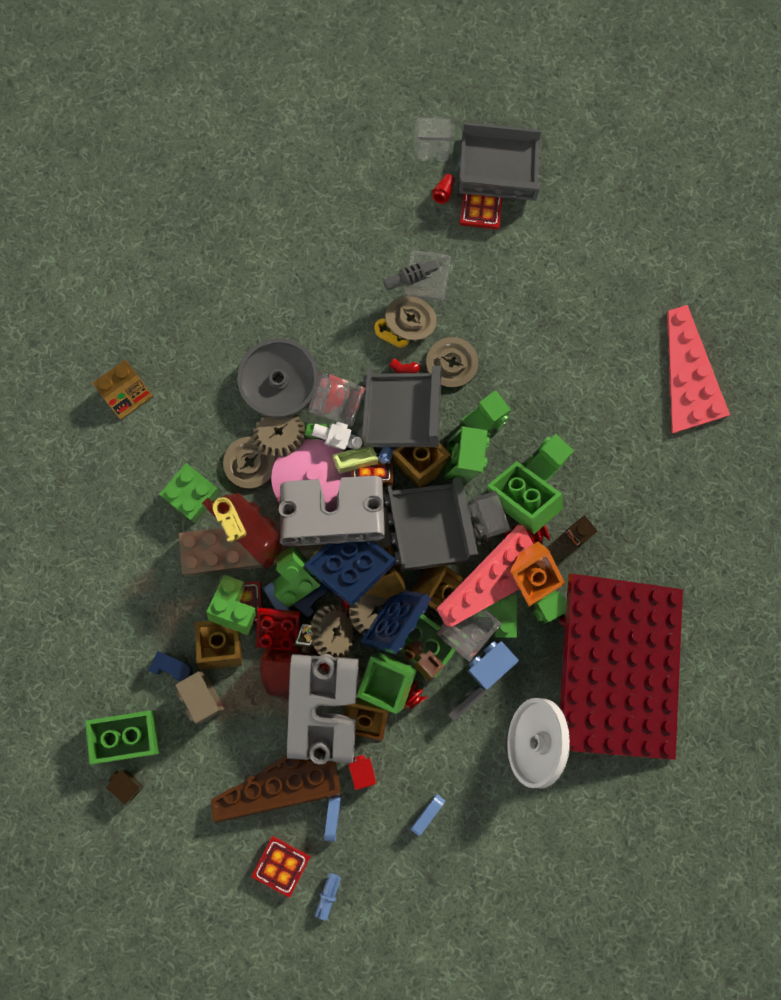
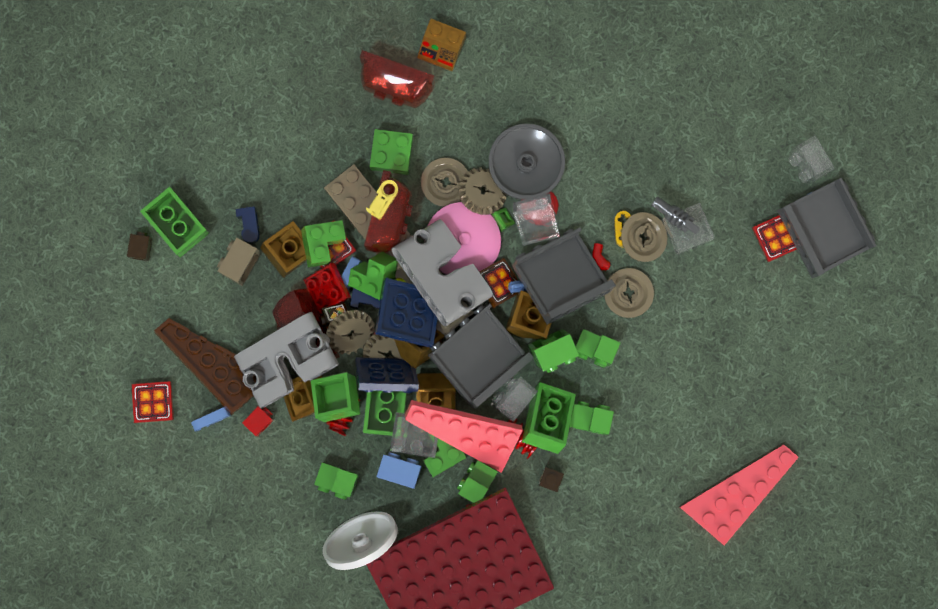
camera: 55 degrees right, 5 degrees up
(126, 450) = (395, 81): none -> clear red windscreen
(328, 896) = (152, 451): medium blue axle -> none
(337, 436) = (507, 239): white piece -> none
(355, 459) = (497, 264): yellowish green tile -> none
(426, 663) = (369, 420): reddish brown plate -> none
(427, 815) = (256, 490): medium blue piece -> none
(443, 189) = (774, 195): red cone -> none
(458, 708) = (351, 465): dark grey plate -> none
(464, 730) = (336, 480): none -> bright green brick
(536, 573) = (489, 461): orange slope -> none

